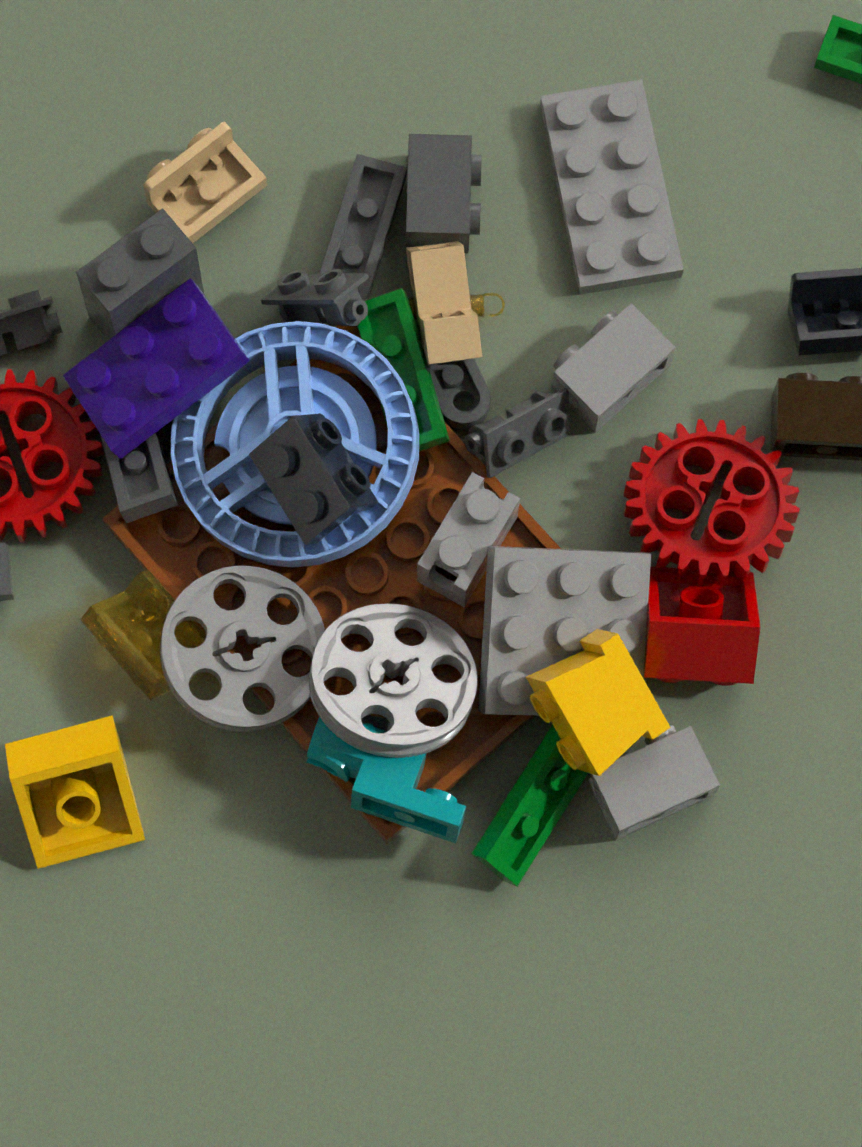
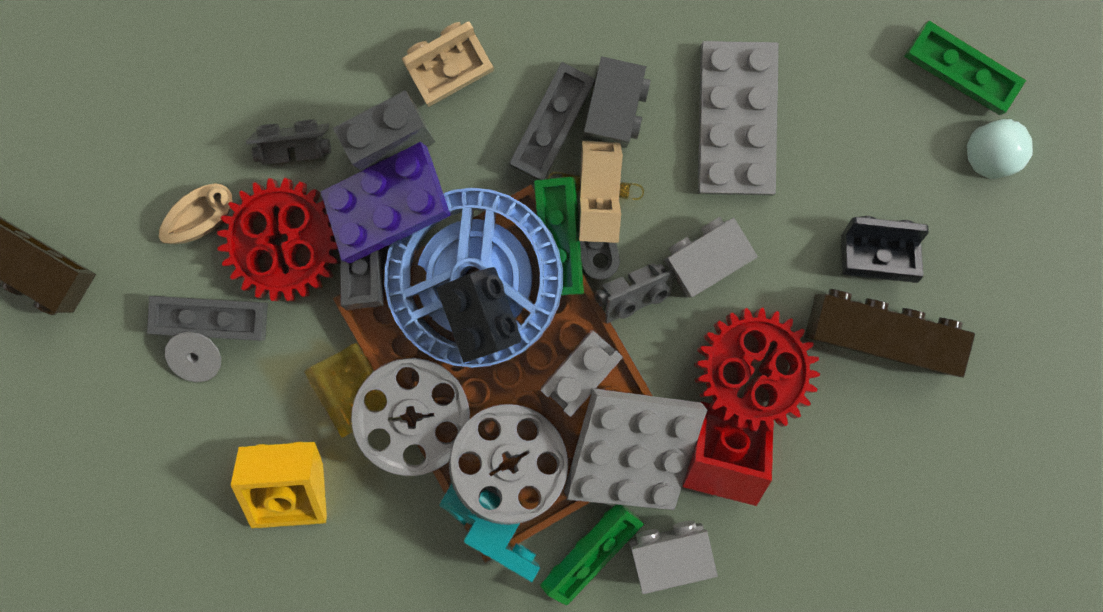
camera: 15 degrees right, 15 degrees up
(320, 297) = (513, 168): dark grey hinge -> none
(596, 703) = (645, 511): yellow hips -> none

